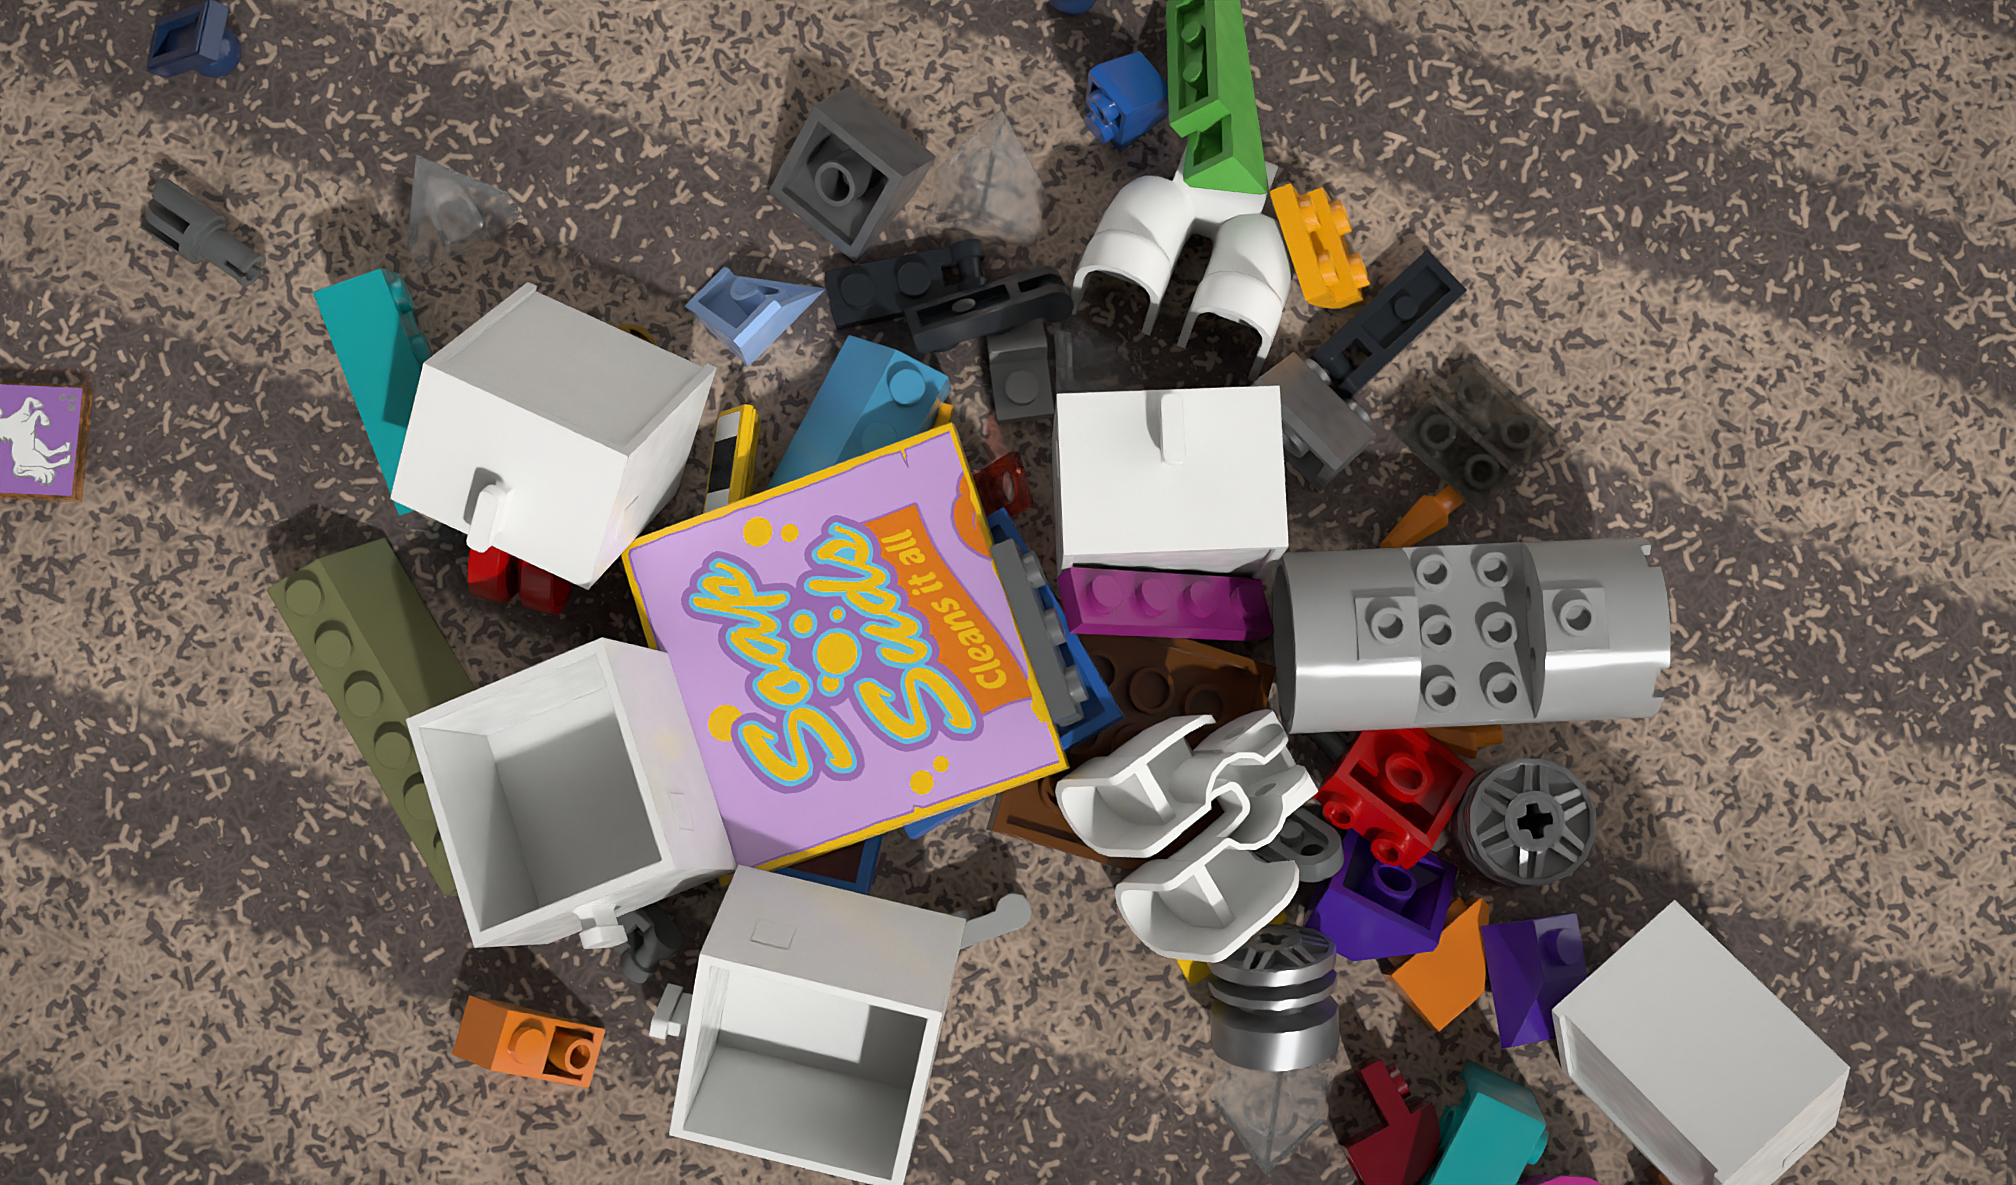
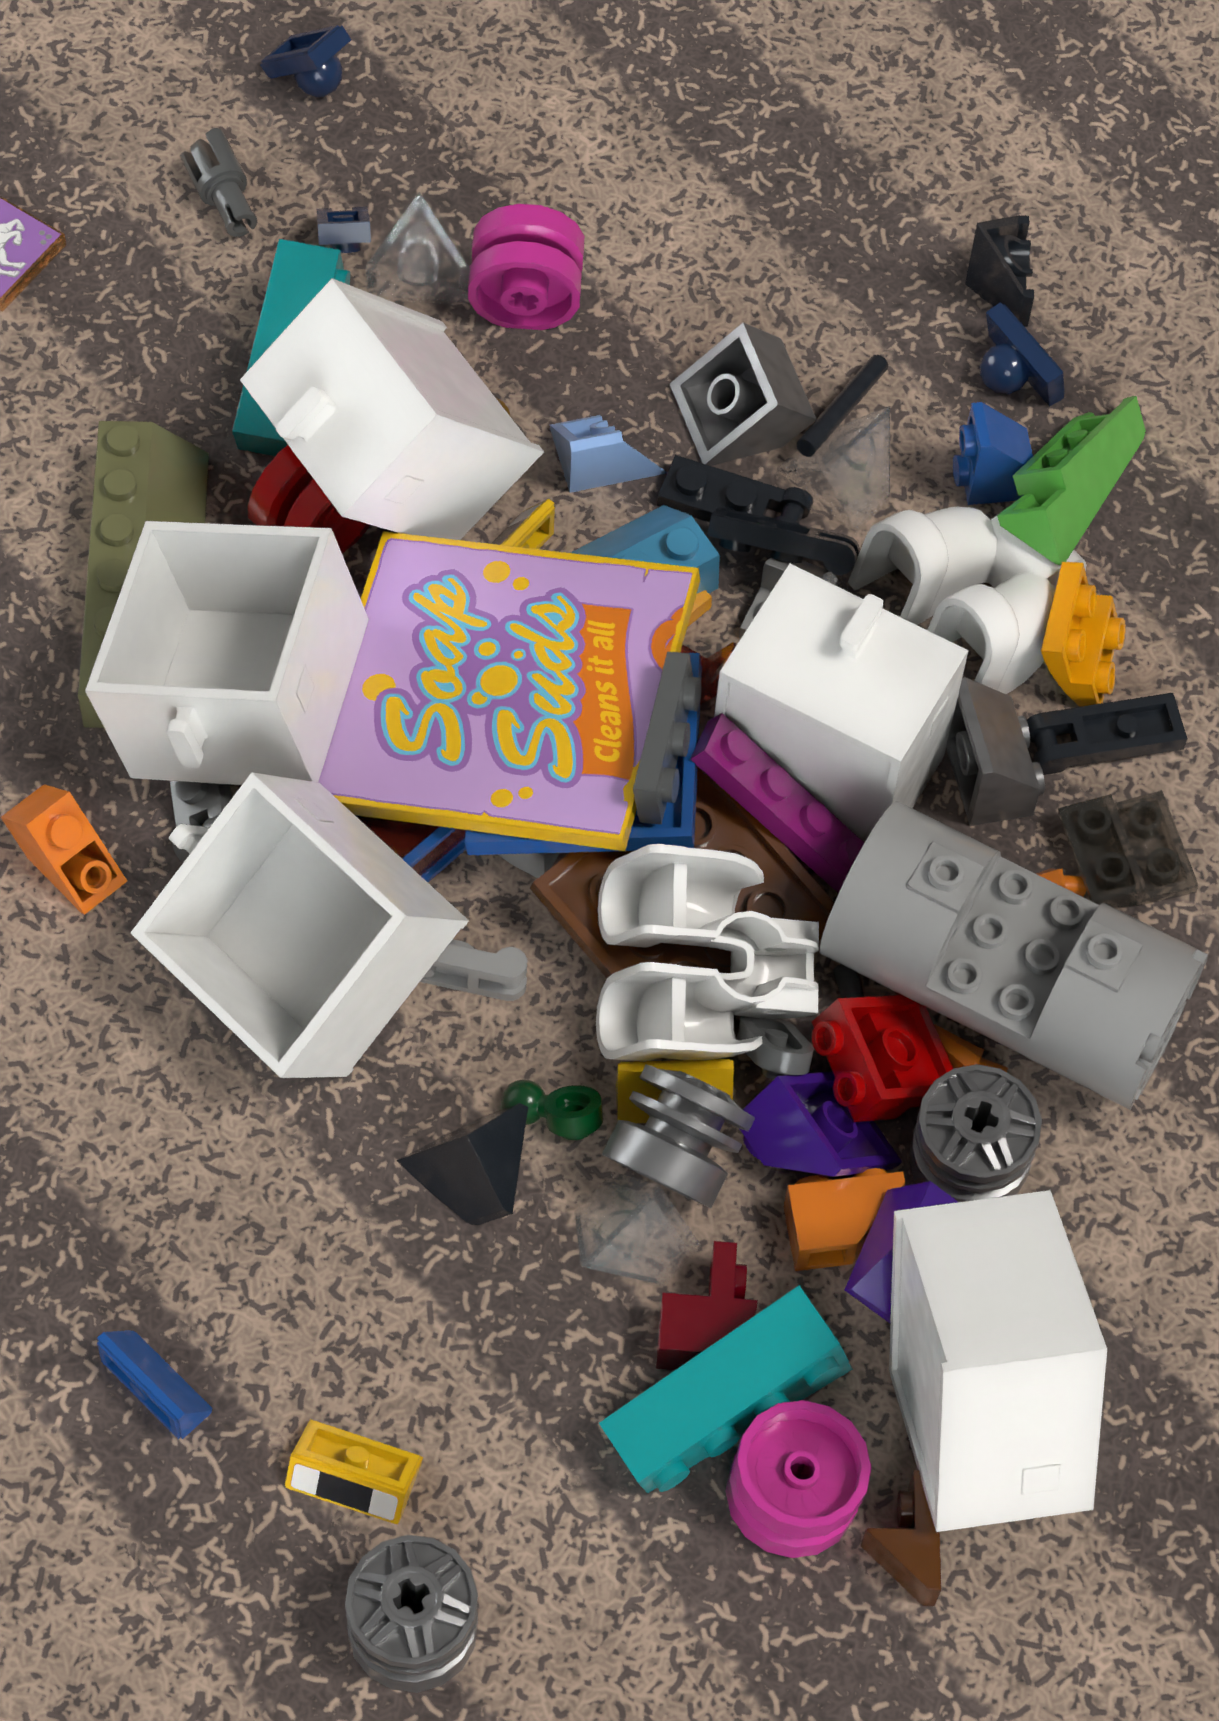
camera: 30 degrees right, 20 degrees down
(360, 227) = (344, 228): none -> dark blue plate
(563, 160) = (526, 267): none -> dark pink wheel
(948, 123) = (842, 405): none -> black bar
(1097, 1113) = (474, 1166): none -> black slope
(1102, 1021) = (568, 1111): none -> dark green plate

